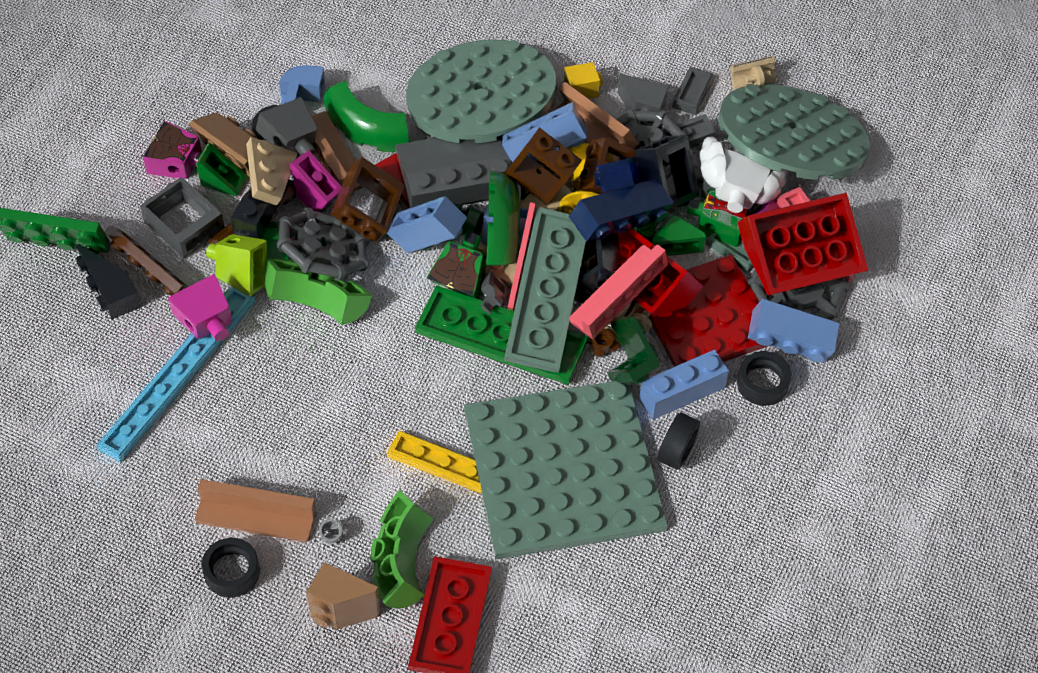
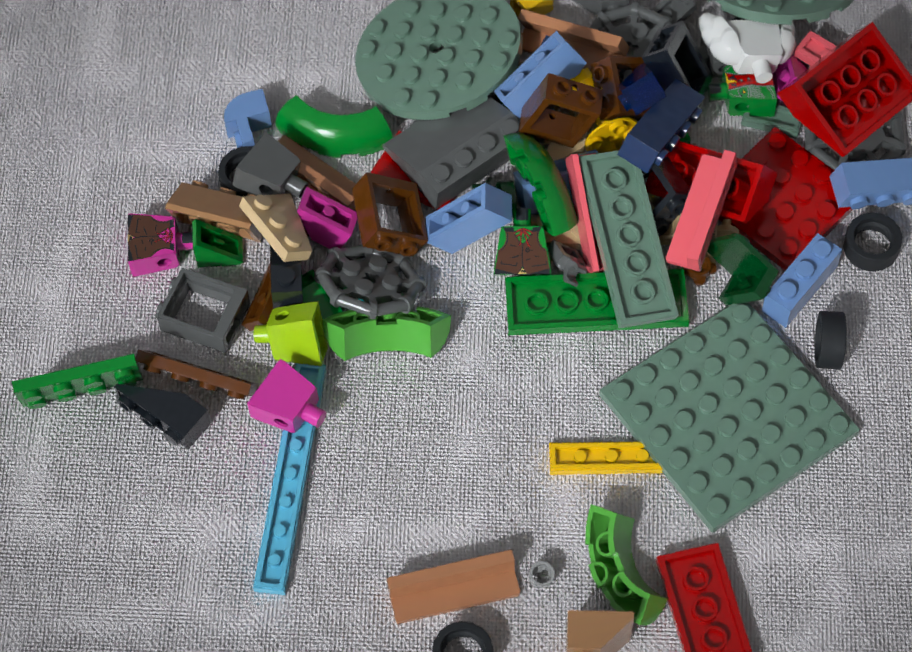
camera: 20 degrees left, 5 degrees up
(679, 237) = (718, 128): green slope -> none

